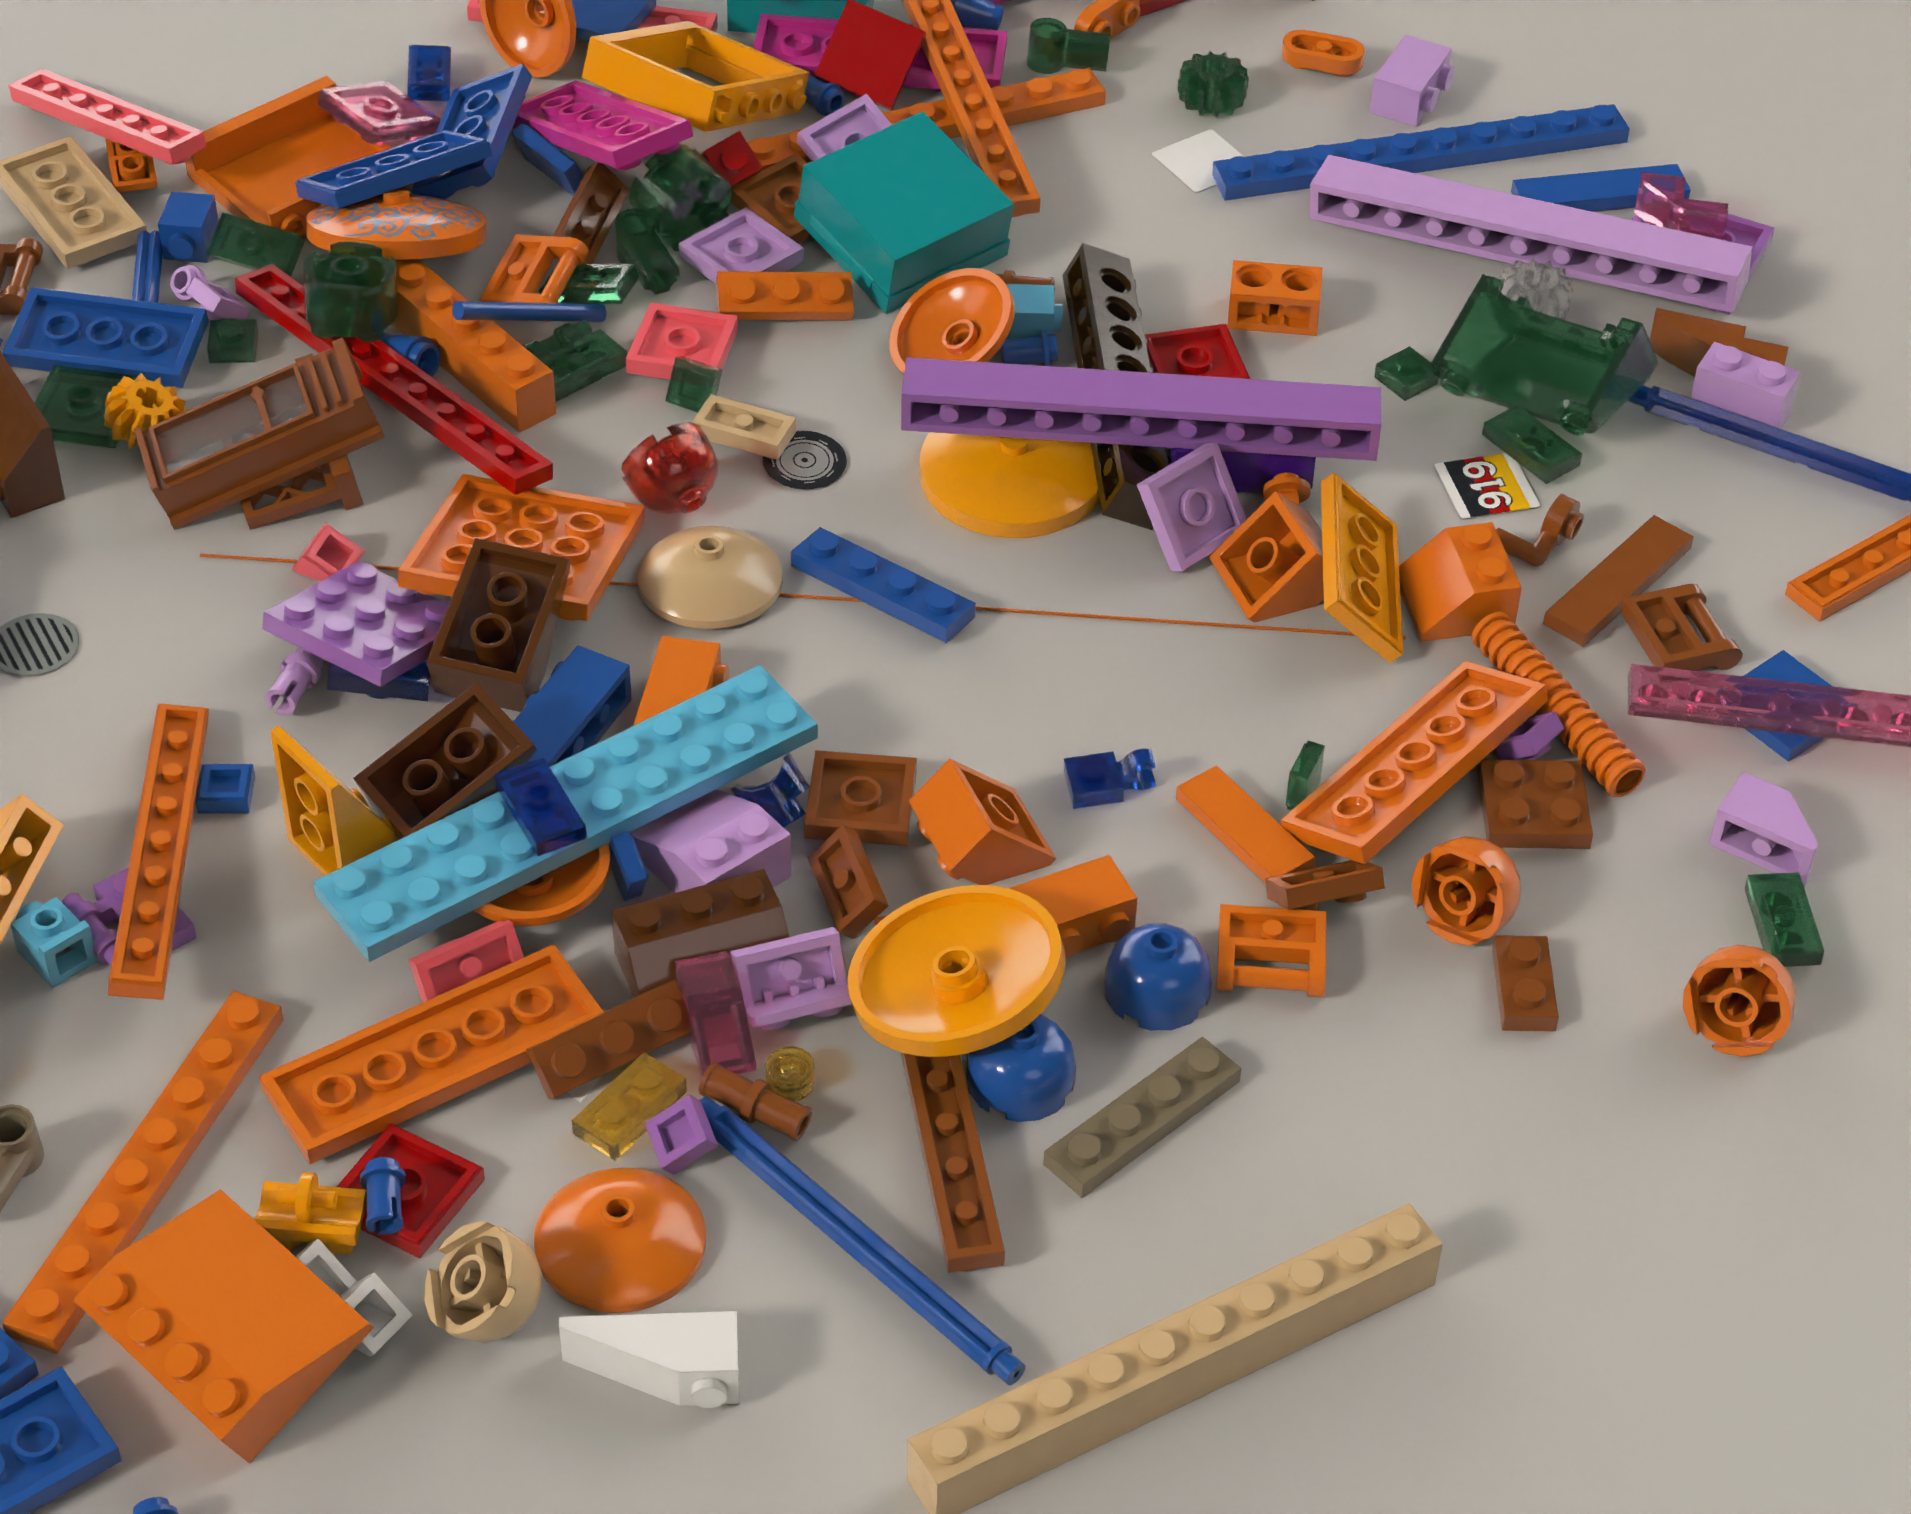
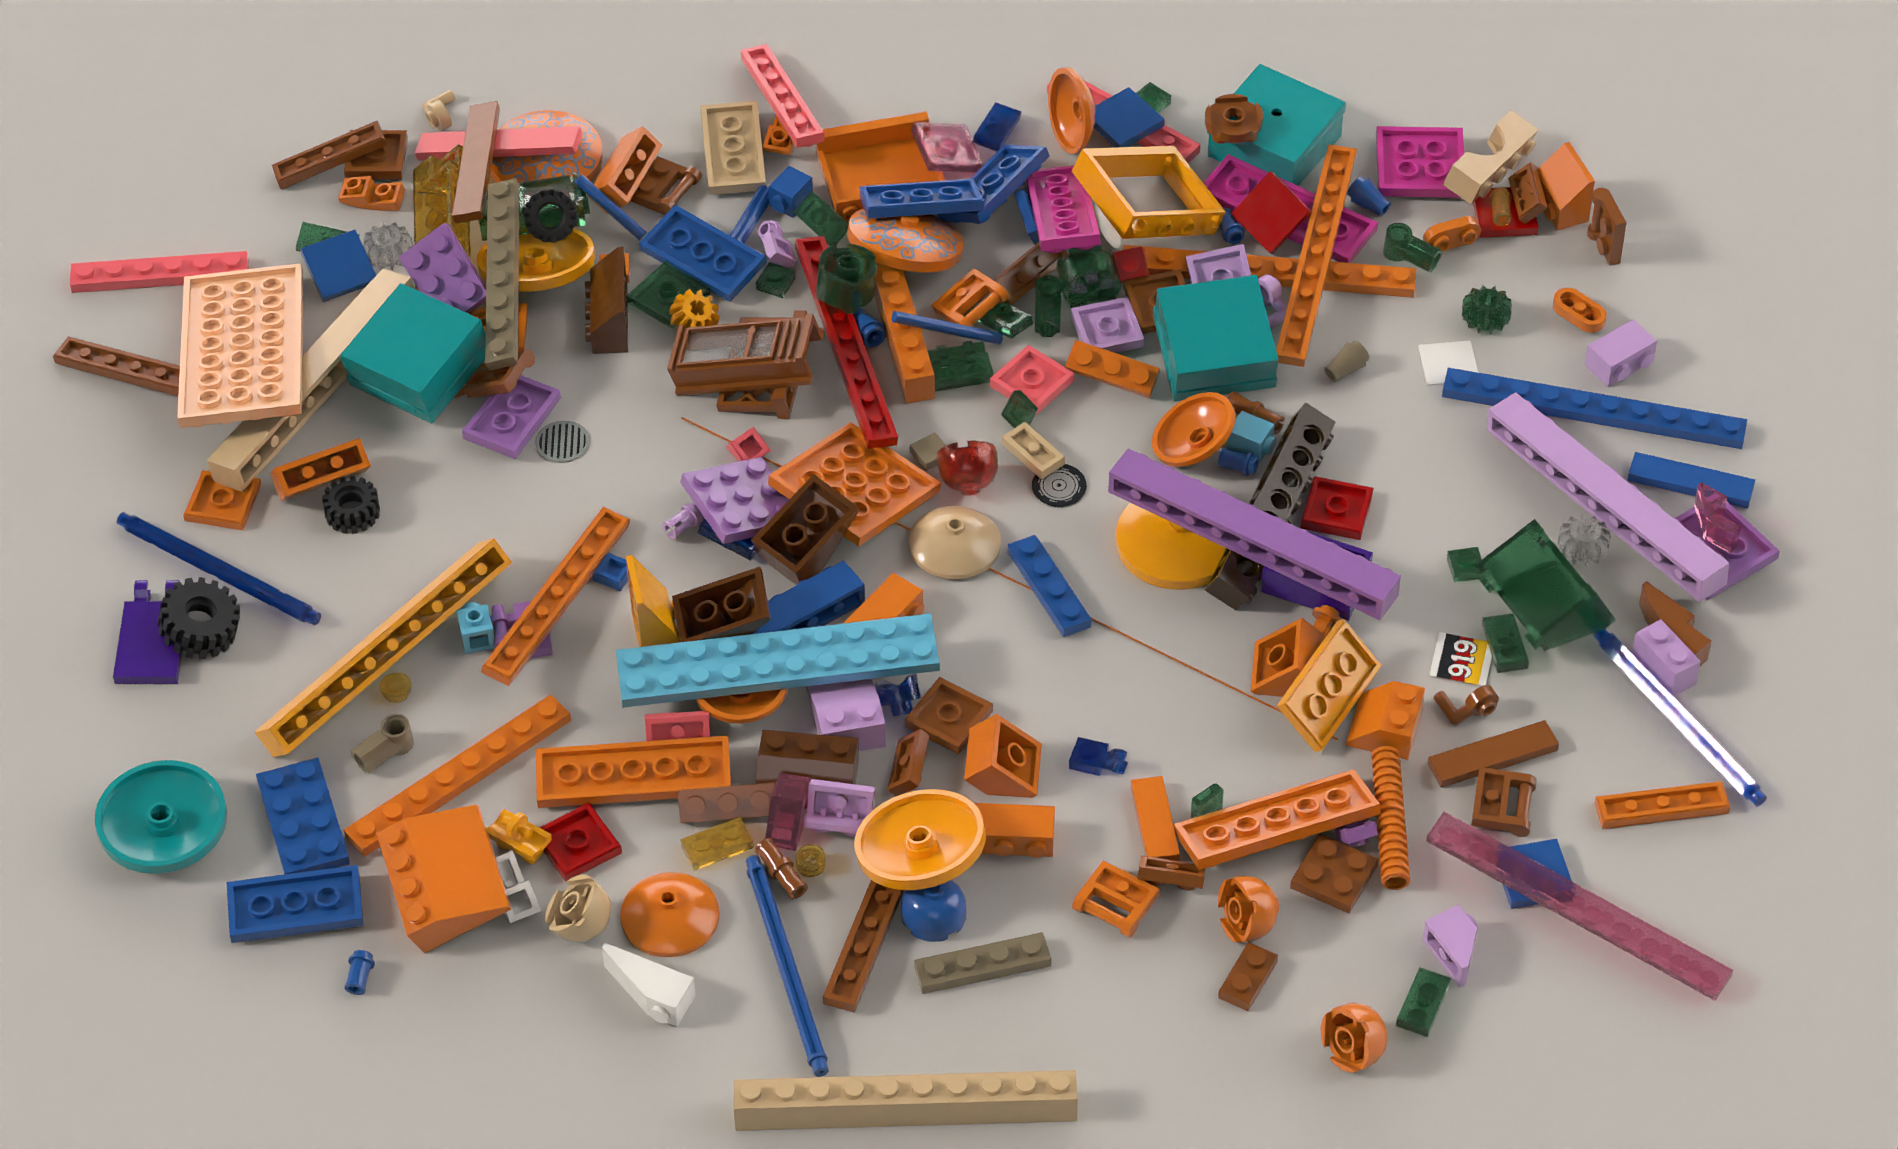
camera: 30 degrees right, 5 degrees up
(383, 1187) = (561, 835): blue pin -> none
(540, 806) = (753, 654): clear blue plate -> none
(596, 476) = (926, 450): none -> dark tan tile
(627, 865) = (793, 705): blue tile -> none
(681, 1134) = (730, 870): medium lavender plate -> none
(1084, 190) = (1348, 360): none -> dark tan cone
(1158, 977) = (1042, 888): blue cylinder -> none
(1192, 506) = (1255, 606): lavender plate -> none
(1275, 298) = (1414, 481): orange brick -> none

